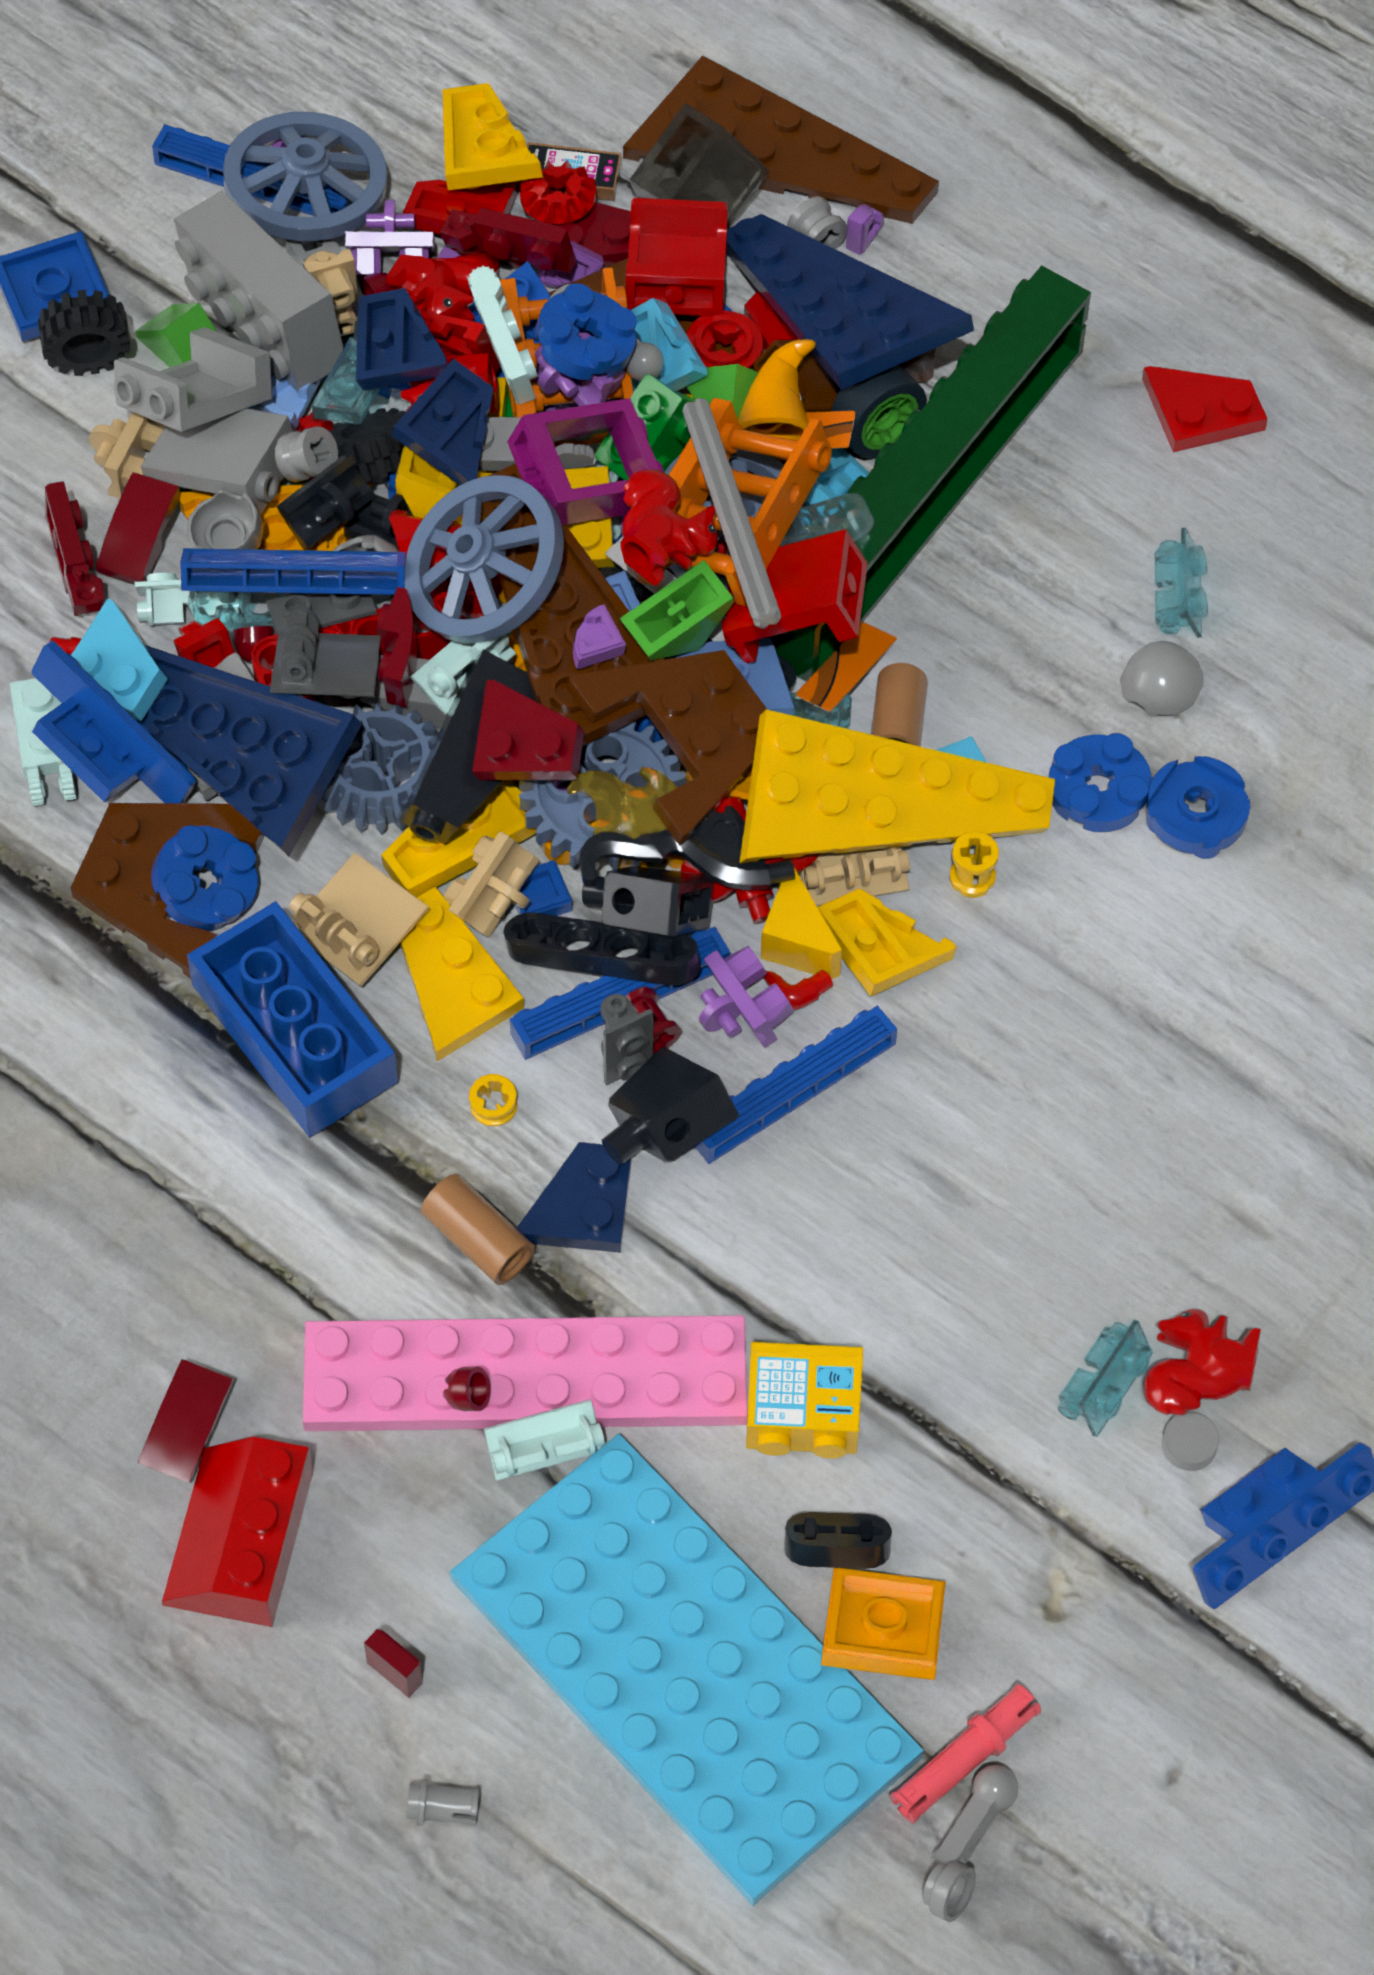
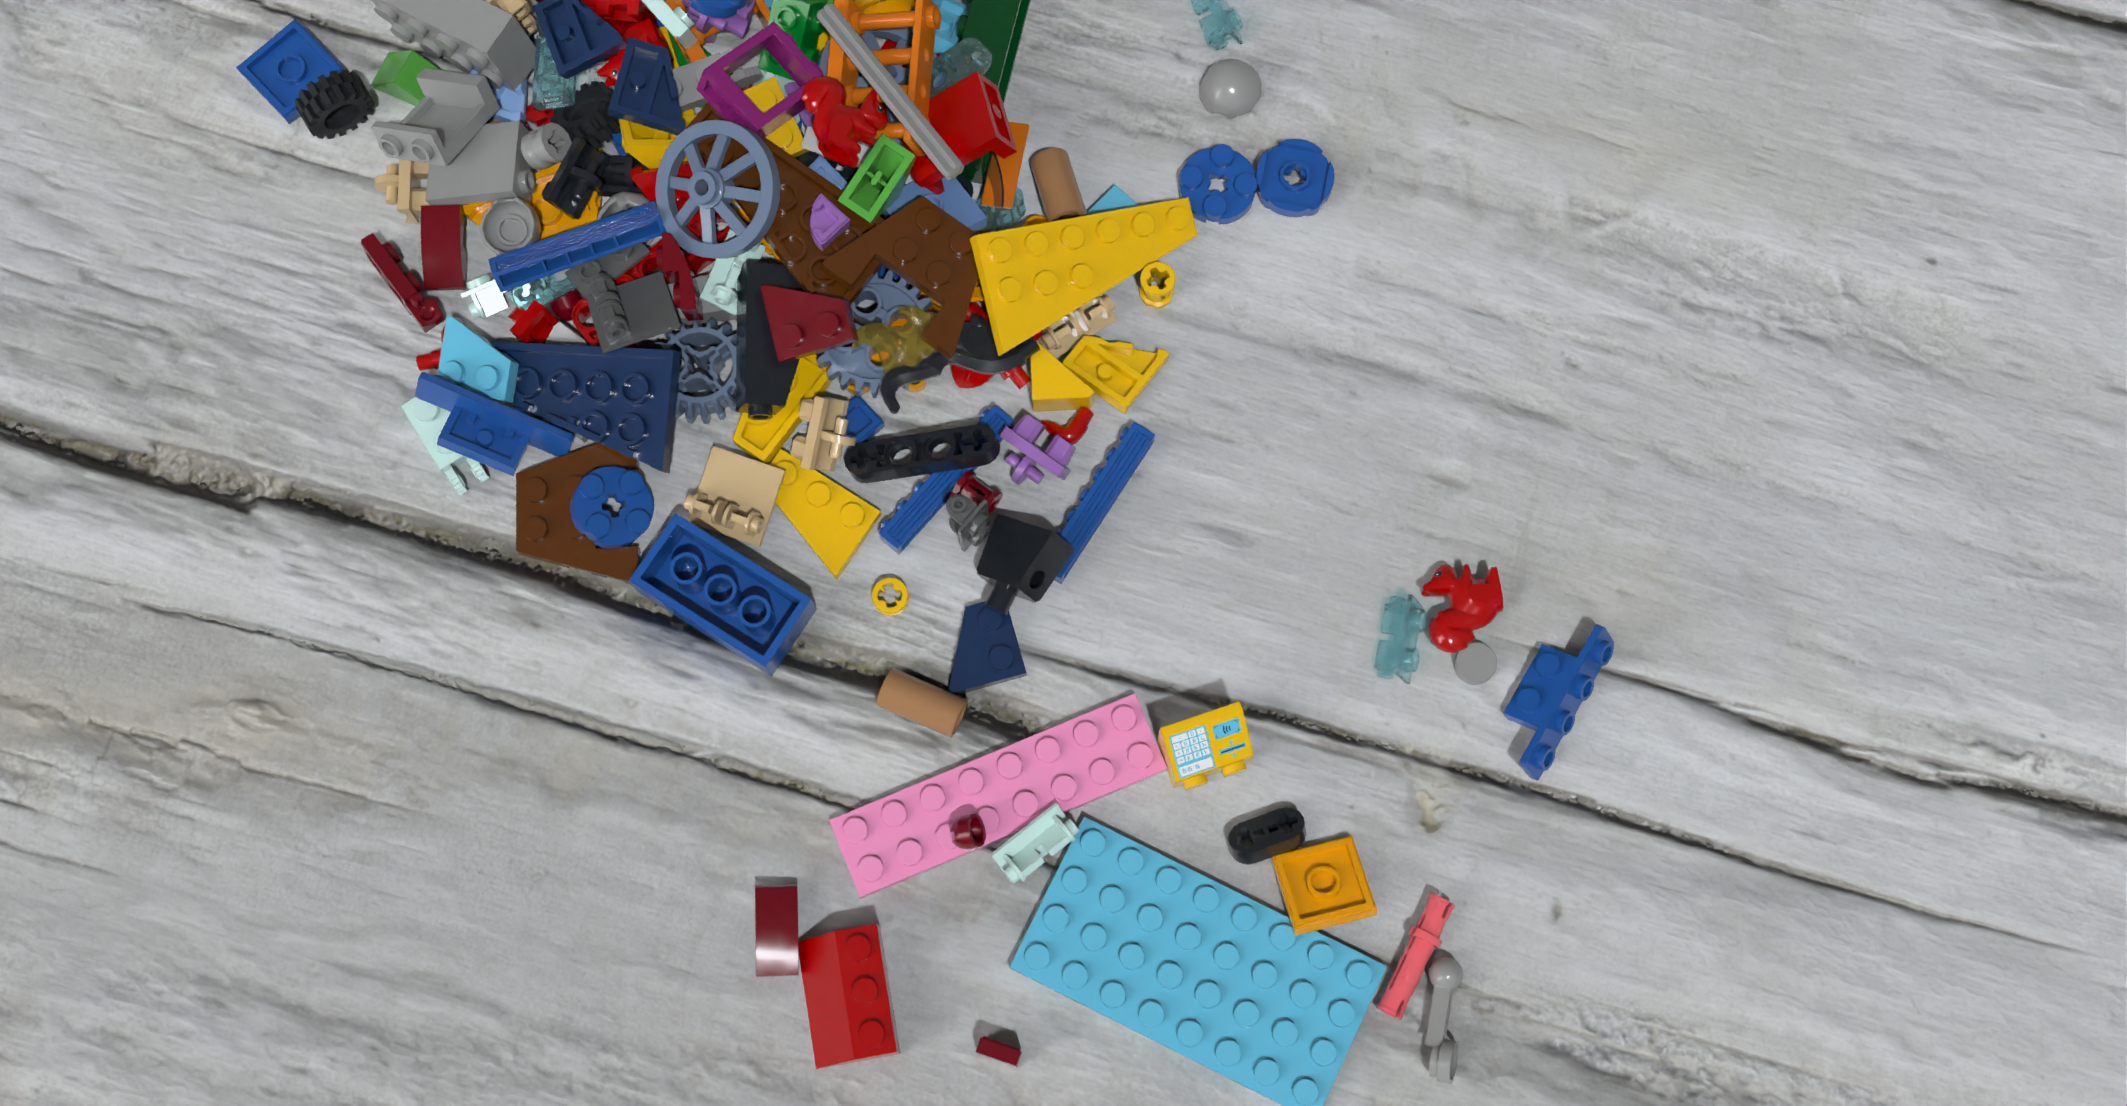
camera: 20 degrees left, 15 degrees up
(652, 900) = (944, 404): black torso -> none

